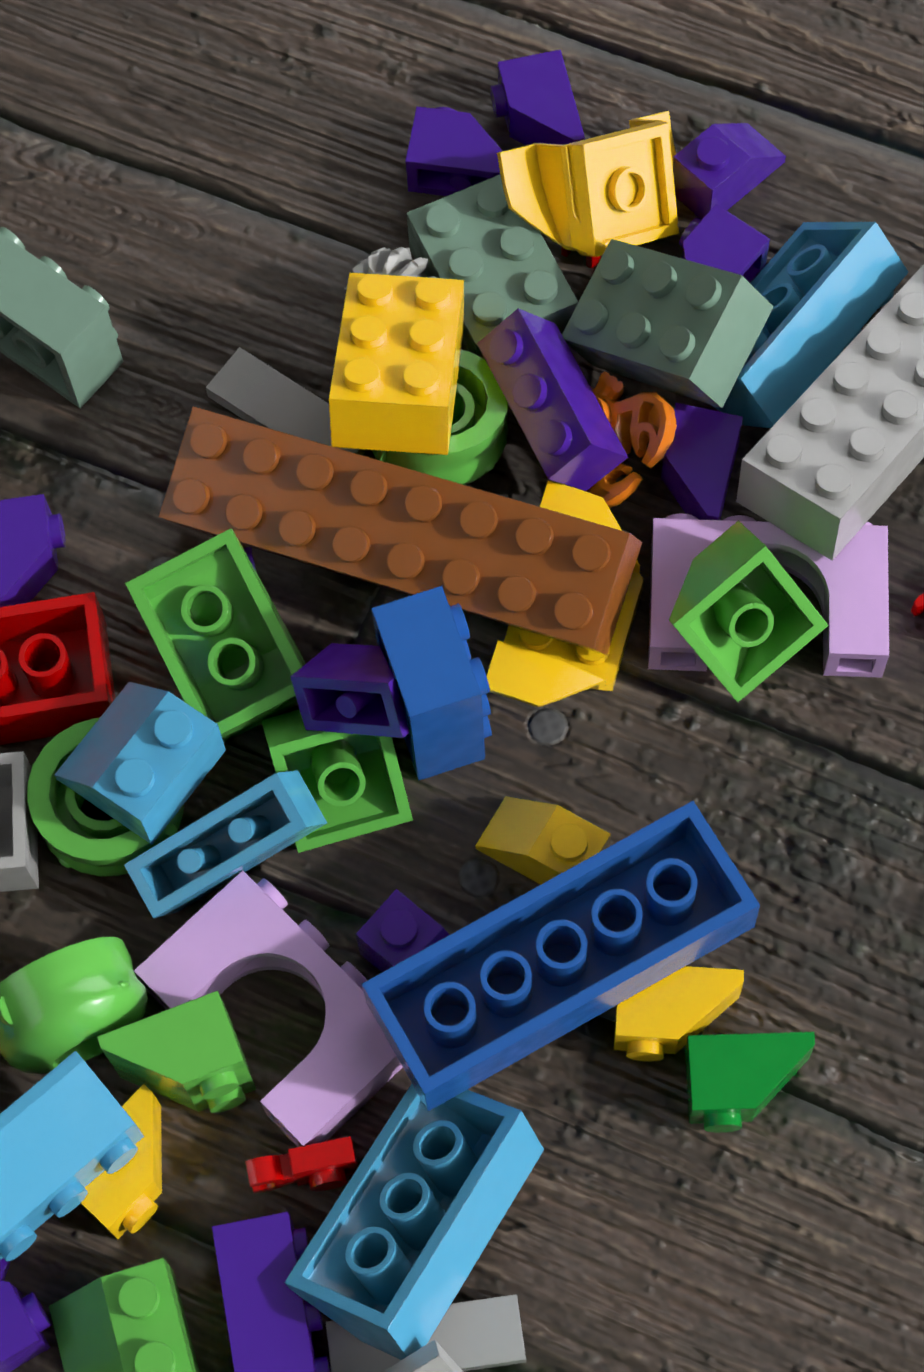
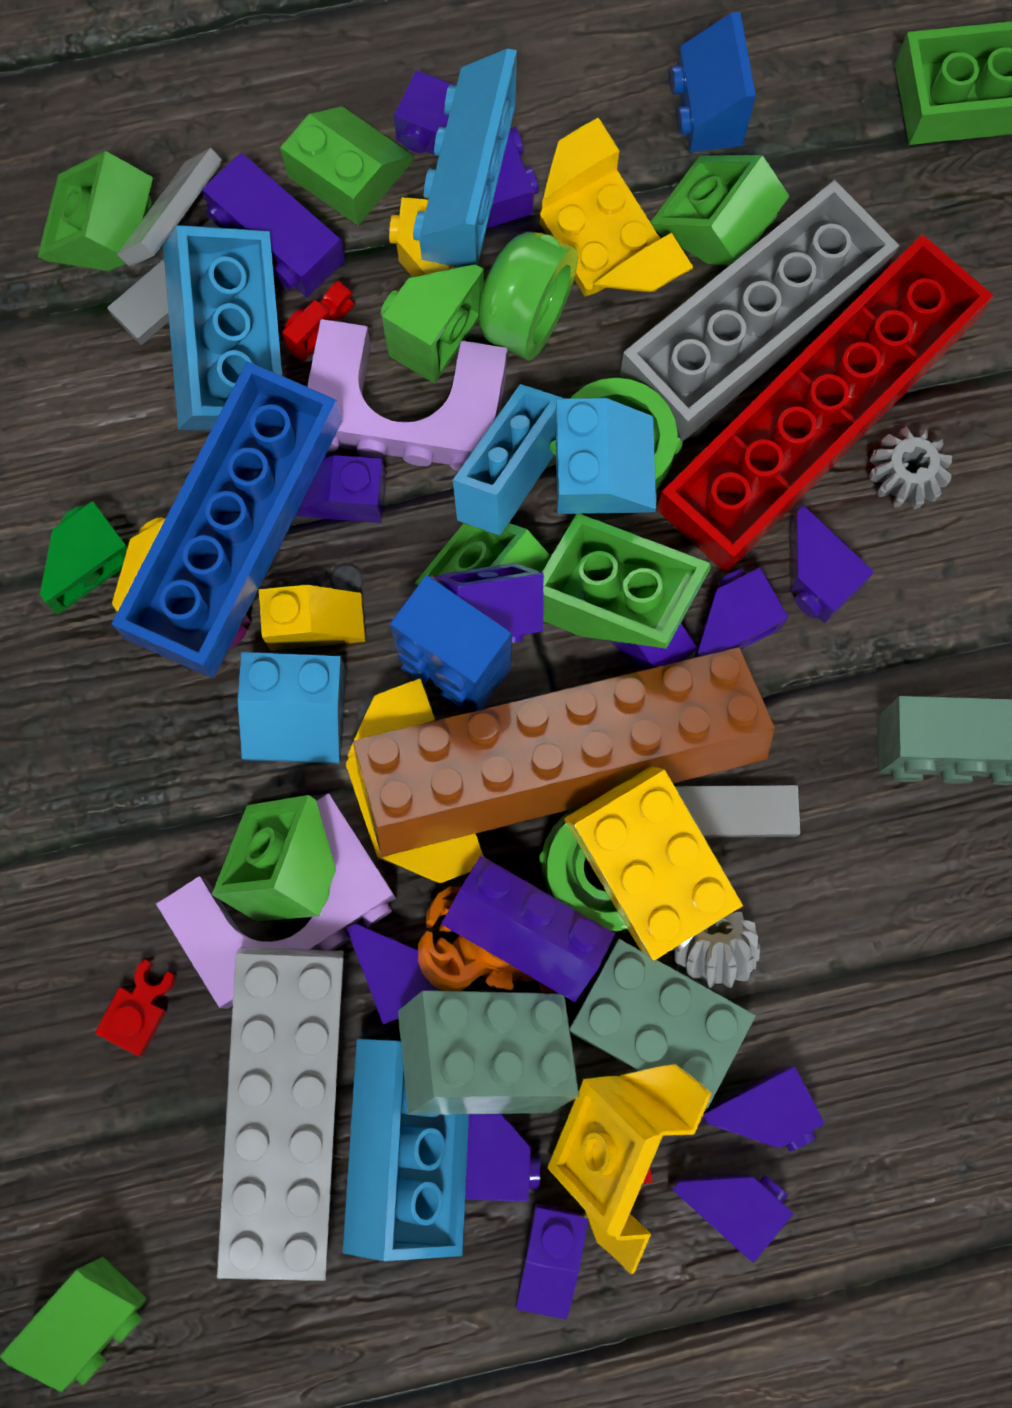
camera: 140 degrees right, 10 degrees up
(122, 551) = (741, 613): none -> dark purple slope
(623, 768) = (291, 707): none -> dark azure slope

